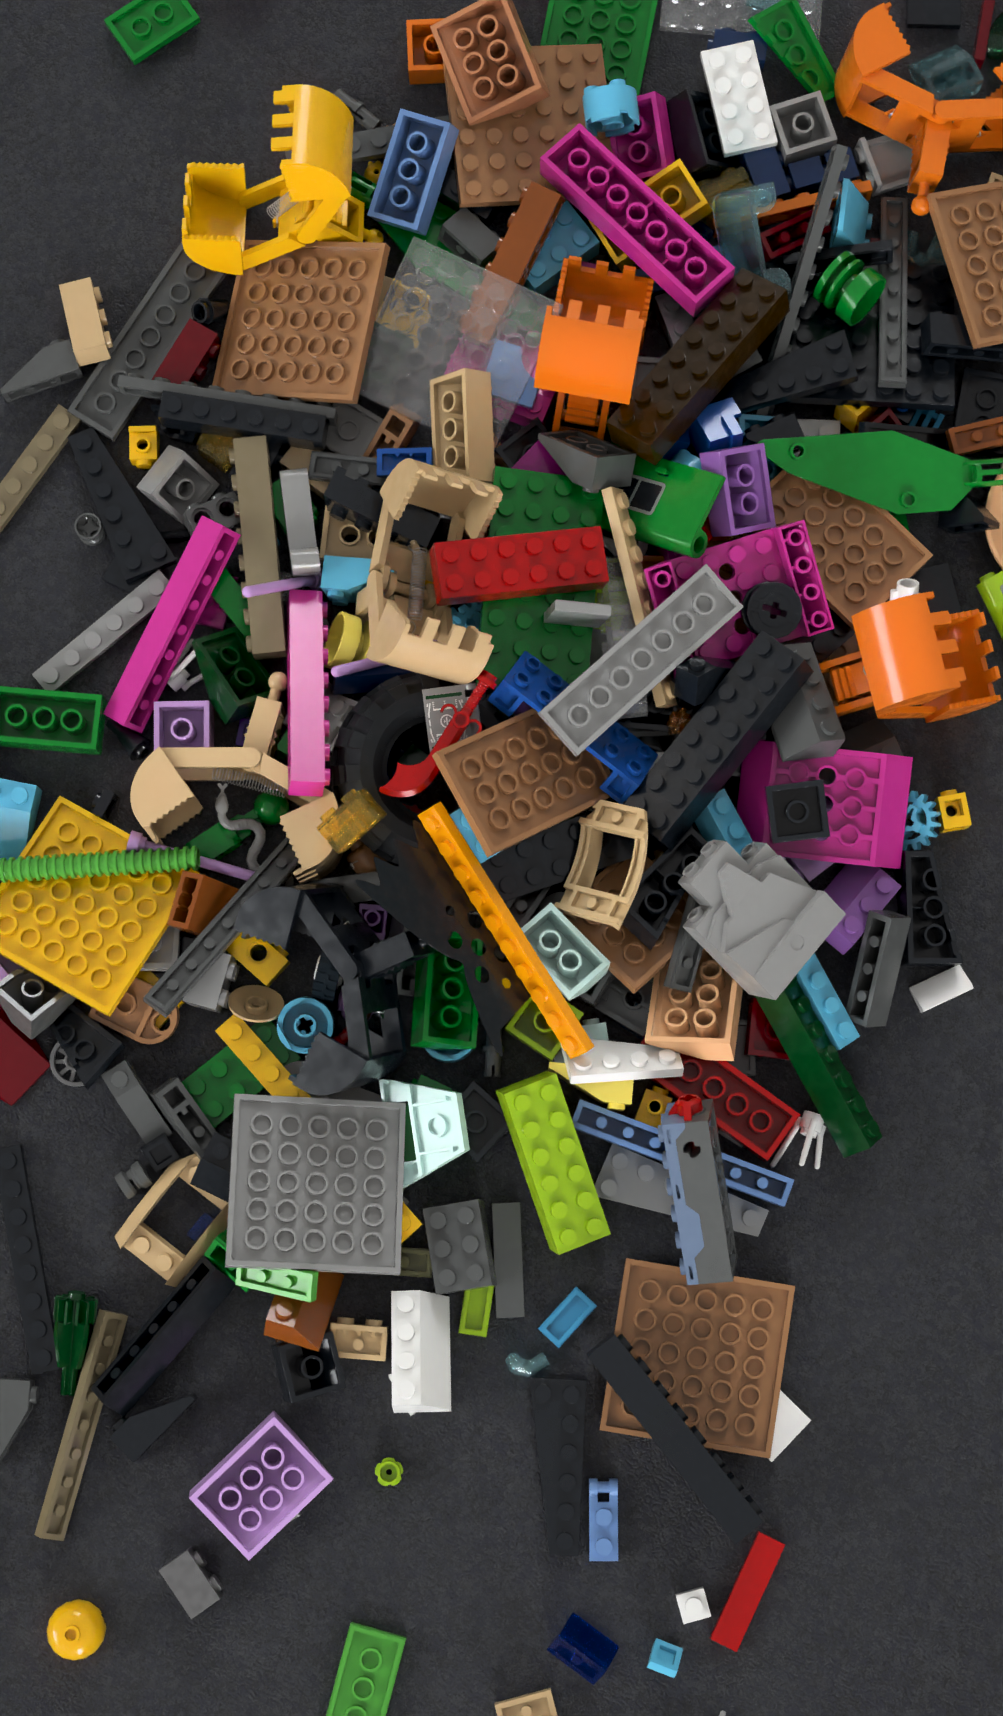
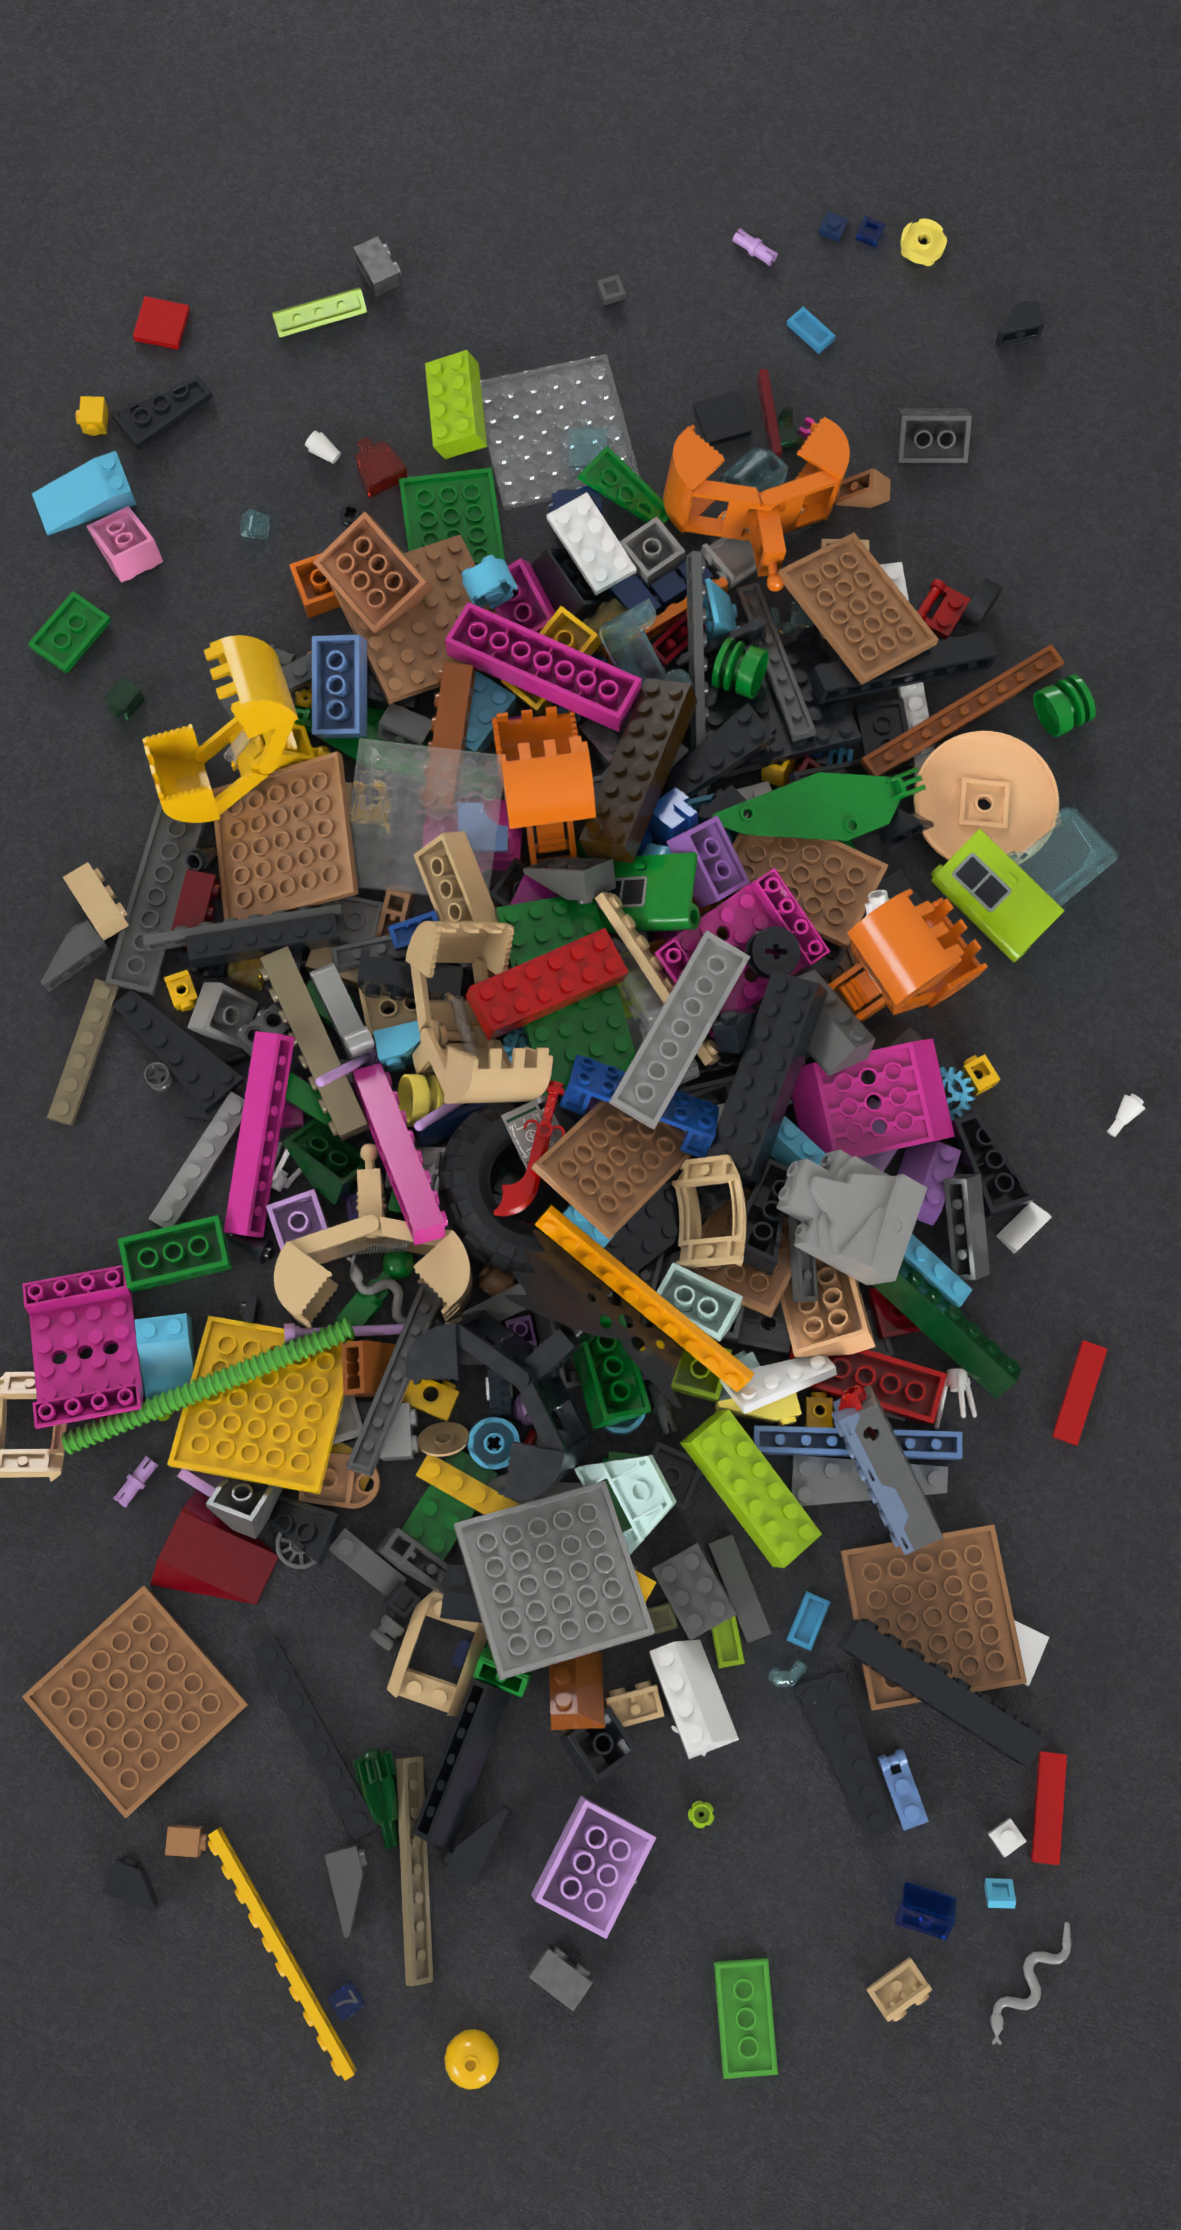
camera: 25 degrees left, 5 degrees down
(185, 112) = (124, 699): none -> clear green brick
(286, 1283) = (562, 1674): plate -> none
(350, 820) = (478, 1248): clear yellow brick -> none
(577, 613) = (611, 1008): light grey tile -> none
(678, 721) = (727, 1072): clear orange plate -> none
(797, 811) = (854, 1114): black brick -> none
(936, 1181) = (1079, 1393): none -> red tile

